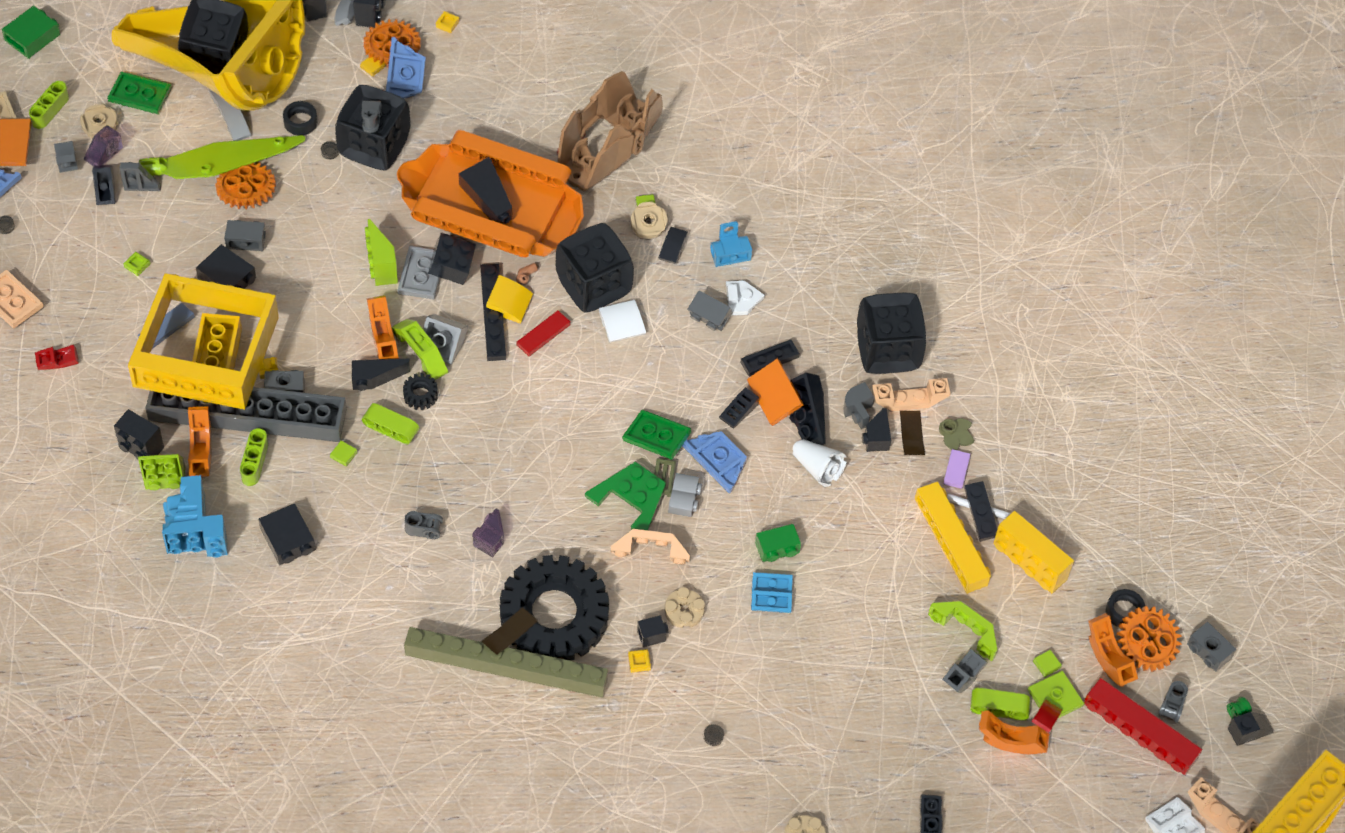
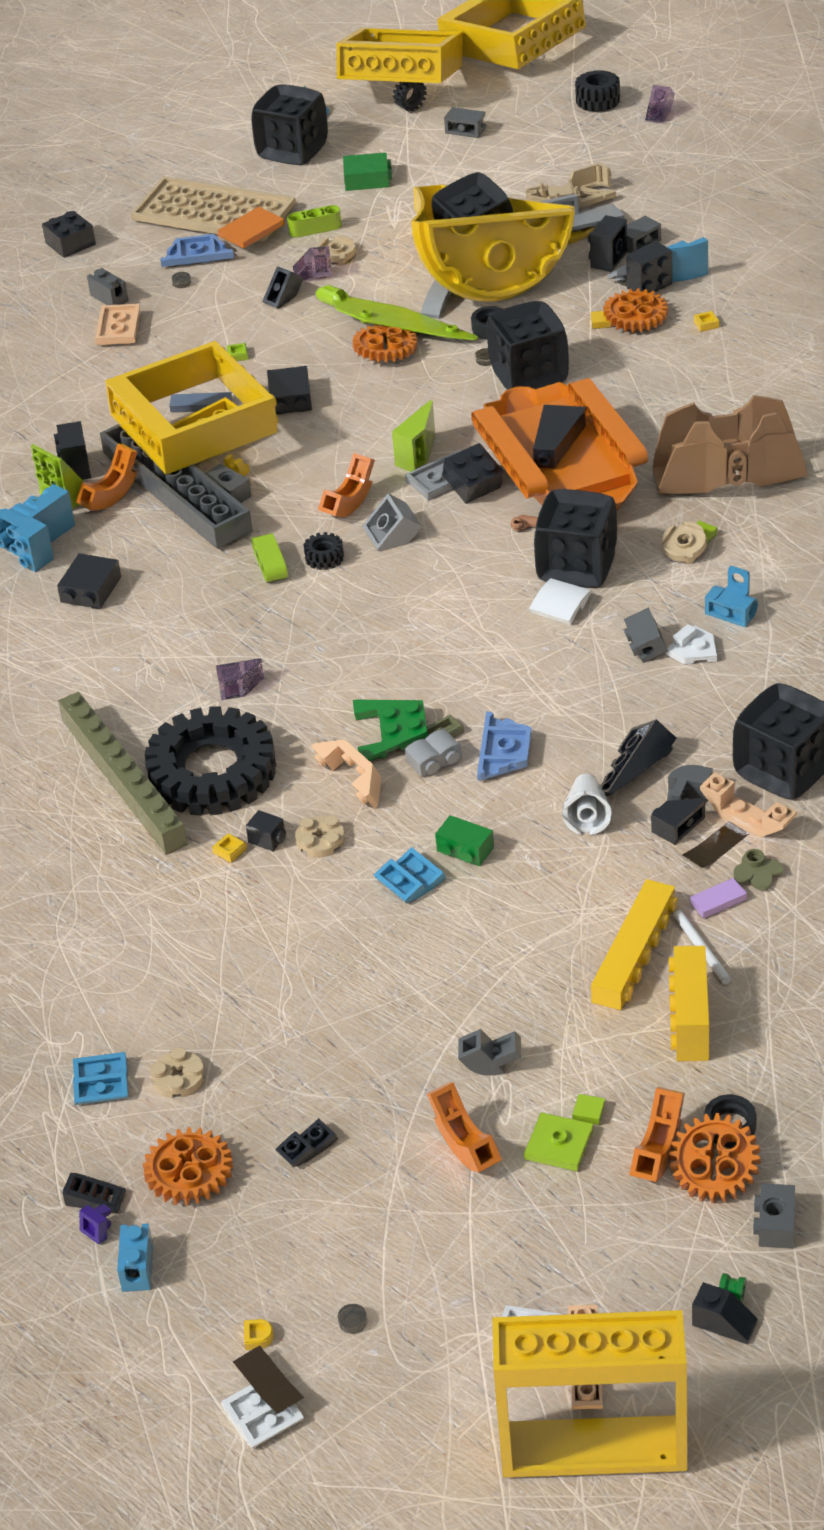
camera: 55 degrees right, 15 degrees down
(55, 359) = (94, 377): red slope -> none
(65, 156) = (279, 255): dark grey brick -> none
(137, 178) = (307, 293): dark grey wing -> none
(139, 92) = (392, 248): green tile -> none
(245, 235) = (337, 374): dark grey brick -> none
(252, 449) = (138, 517): lime beam -> none
(343, 453) = (208, 557): lime tile -> none
(371, 115) = (518, 321): dark grey piece -> none
(373, 373) = (307, 517): black slope -> none
(404, 70) = (613, 332): medium blue wing -> none
(423, 346) = (359, 520): lime slope -> none
(424, 524) = (196, 637): dark grey piece -> none
(492, 319) = (461, 534): black plate -> none
(509, 299) = (484, 529): yellow slope -> none
(509, 631) = (144, 744): dark brown sticker -> none
(543, 333) = (482, 571): red tile -> none
(656, 434) = (472, 695): green tile -> none
(672, 245) = (677, 574): black slope -> none
(713, 735) = (212, 943): clear smoke tile -> none
(746, 398) = (581, 724): black slope -> none
(755, 362) = (655, 703): black plate -> none
(775, 392) = (620, 728): orange tile -> none
(944, 611) = (555, 1044): lime slope -> none
(981, 510) = (696, 933): black plate -> none
(1000, 703) = (493, 1104): lime beam -> none
(1047, 715) = (511, 1136): red slope -> none
(1142, 726) = (607, 1228): red brick -> none
(1172, 703) = (670, 1231): dark grey piece -> none

